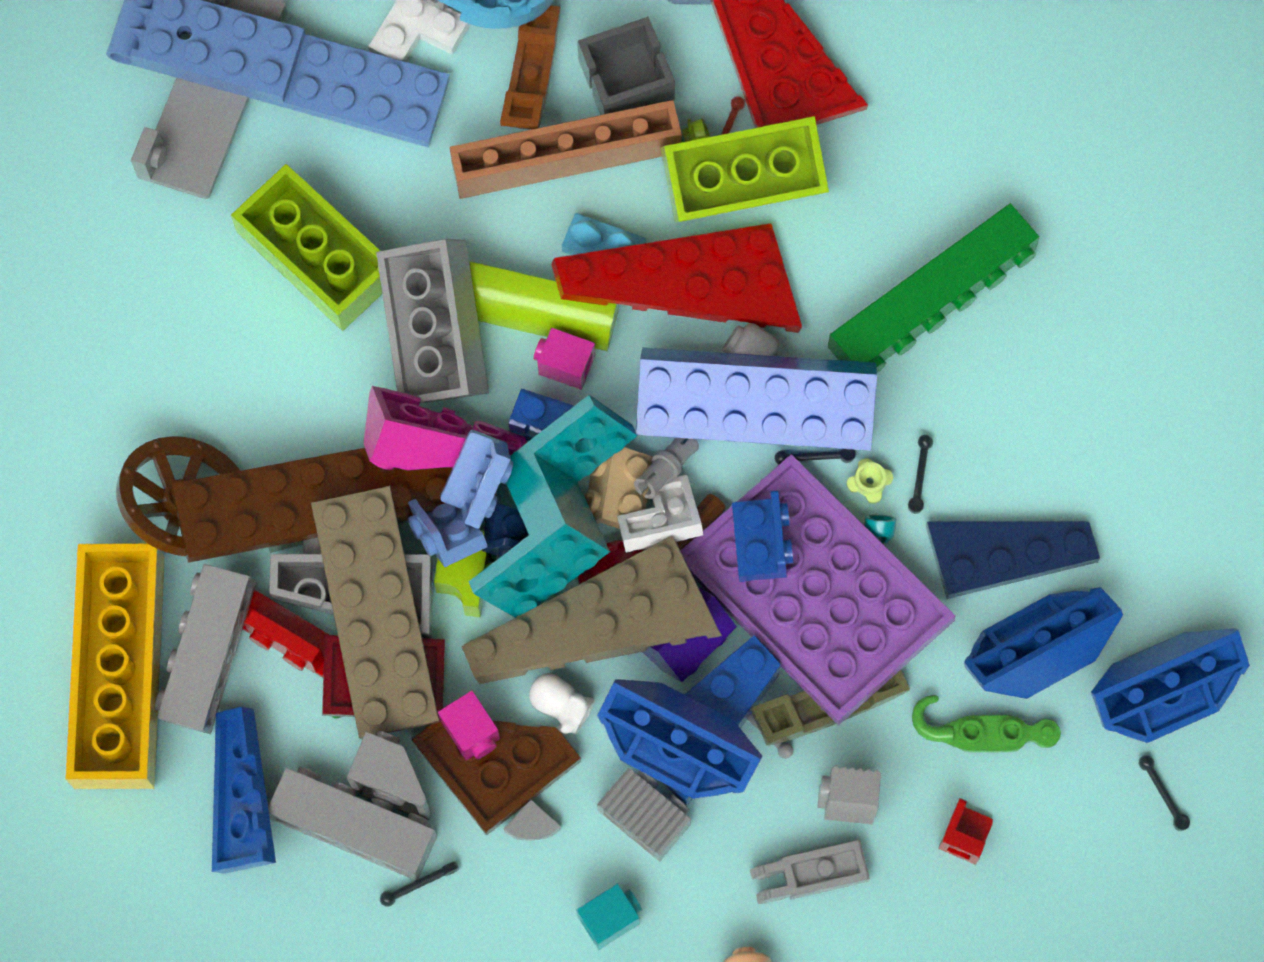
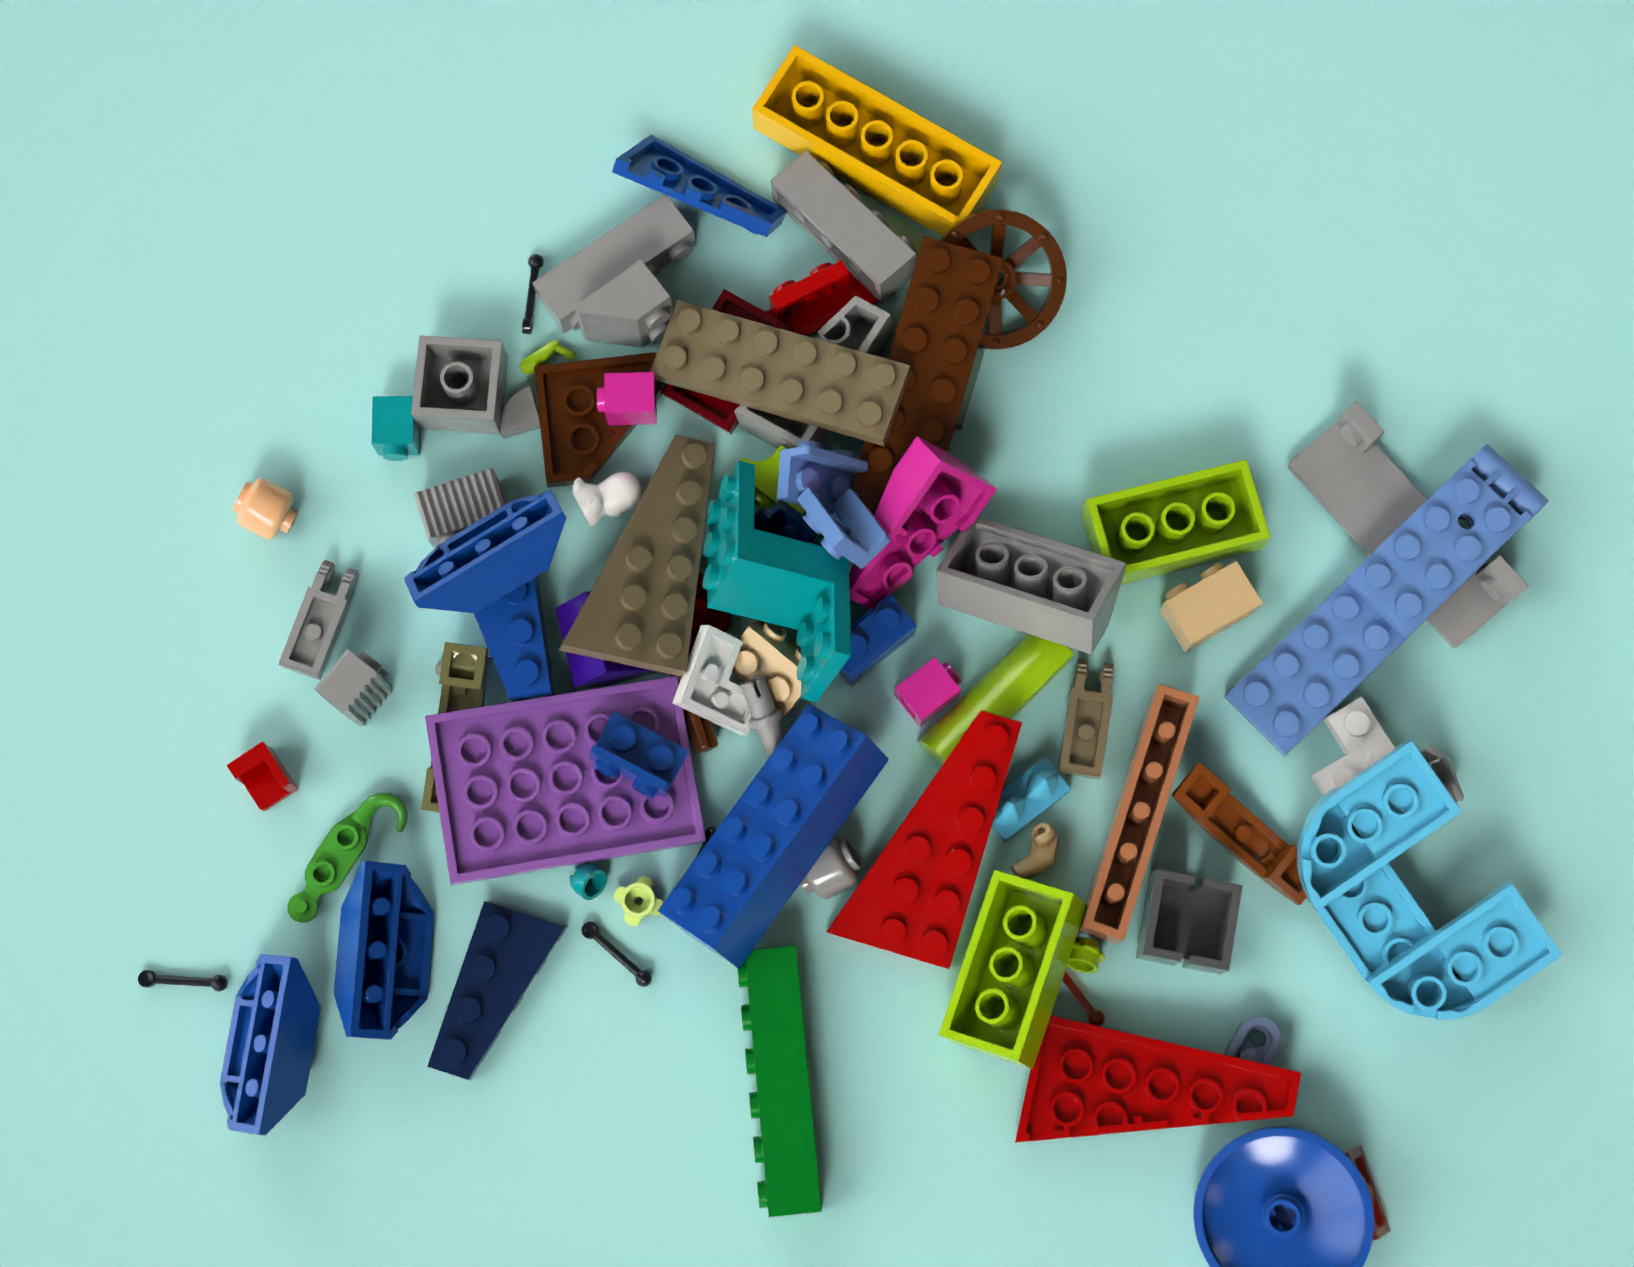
camera: 120 degrees right, 5 degrees up
(365, 187) = (1209, 605): none -> tan brick
(470, 838) = (543, 354): none -> lime piece
(515, 230) = (1086, 724): none -> dark tan hinge
(540, 880) = (459, 384): none -> light grey brick
(640, 208) = (1041, 854): none -> tan arm

